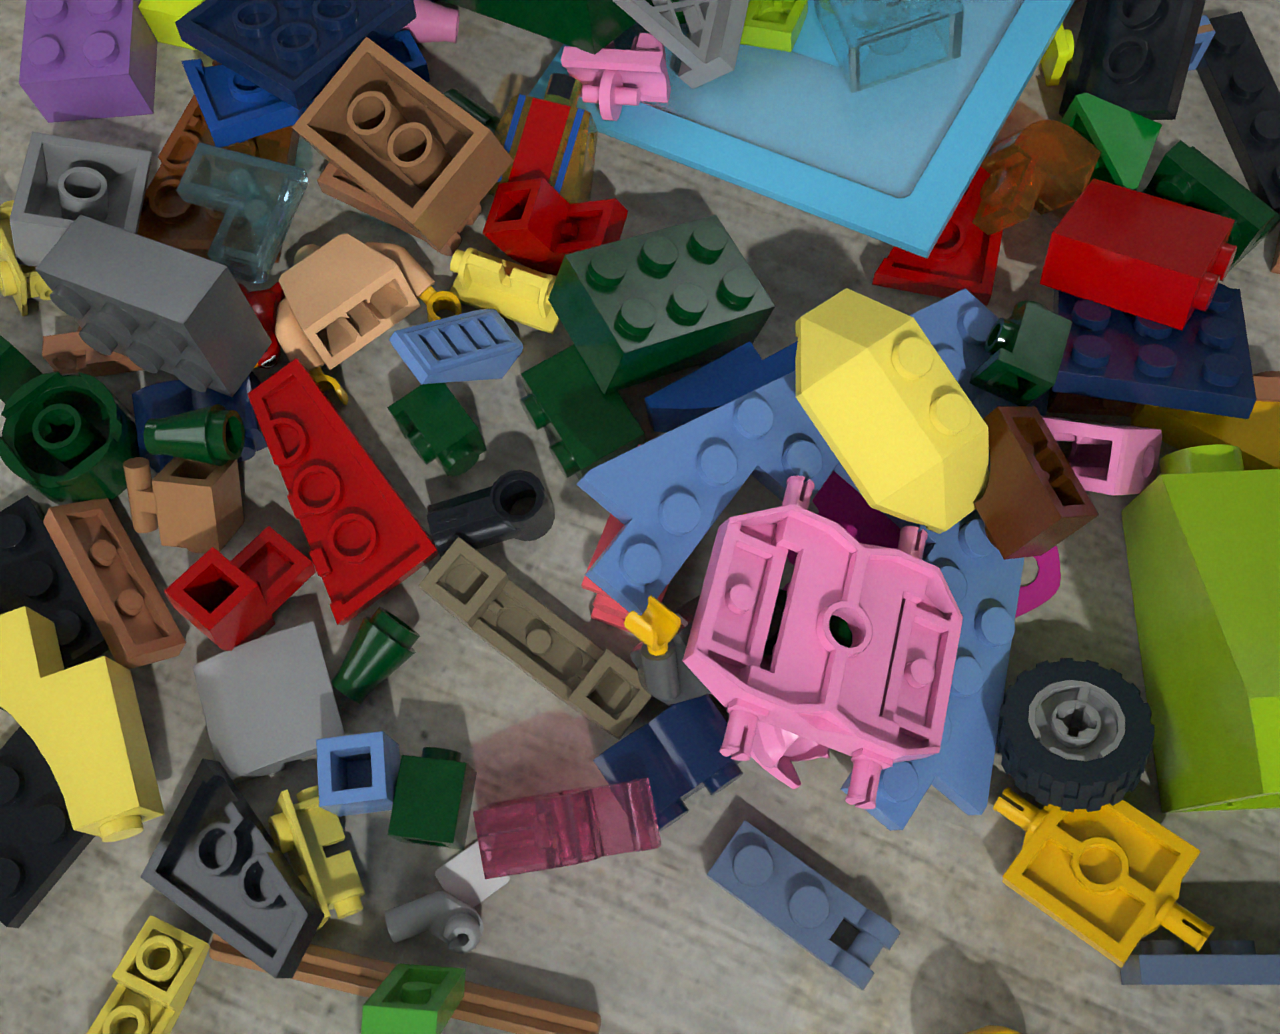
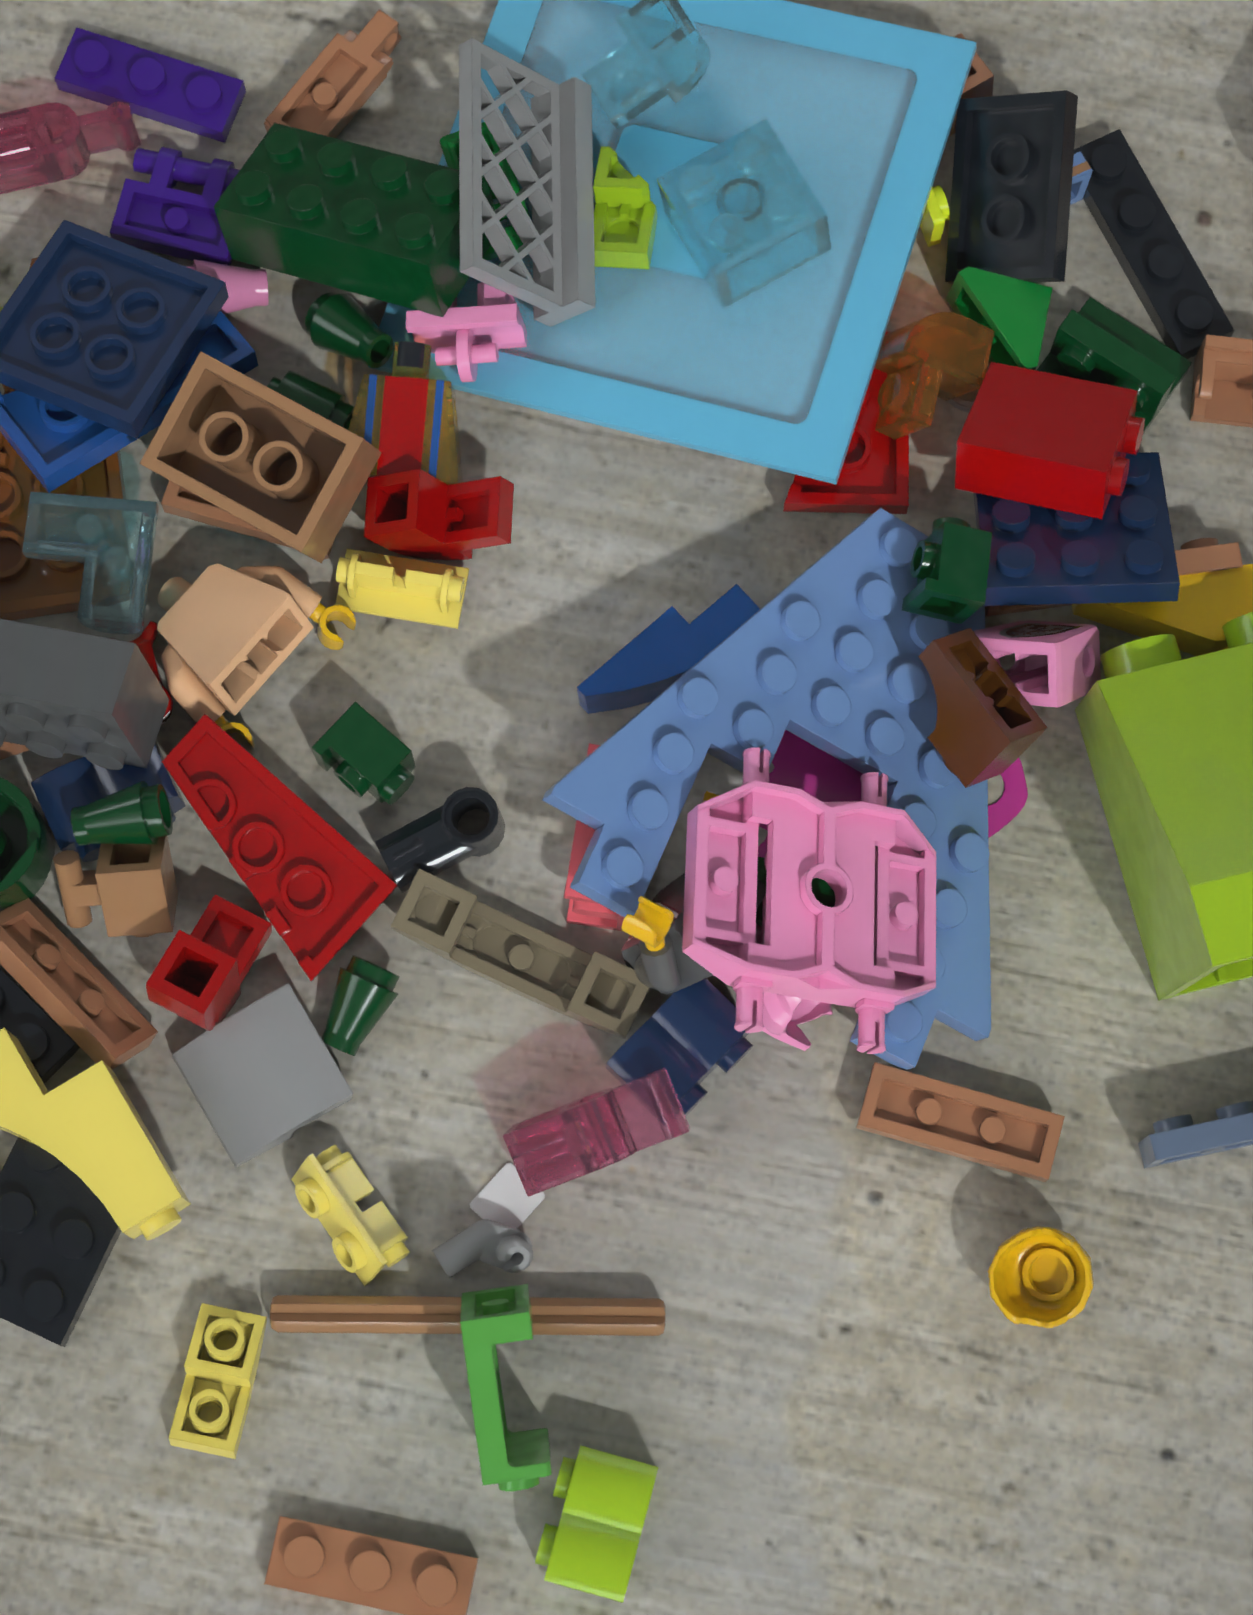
camera: 20 degrees left, 5 degrees up
(233, 875) = (276, 1244): black wing -> none
(357, 773) = (379, 1124): medium blue brick -> none
(433, 799) = (455, 1133): dark green brick -> none
(467, 347) = (376, 661): medium blue slope -> none
(513, 65) = (347, 330): none -> dark green cone
(577, 414) = (512, 714): dark green brick -> none
(659, 302) = (571, 581): dark green brick -> none
(801, 903) = (831, 1157): sand blue plate -> none
(891, 411) = (828, 662): light yellow wedge -> none
(940, 897) = (960, 1122): none -> nougat plate
(1069, 769) = (1066, 976): black wheel -> none
(1102, 873) = (1105, 1063): yellow plate -> none

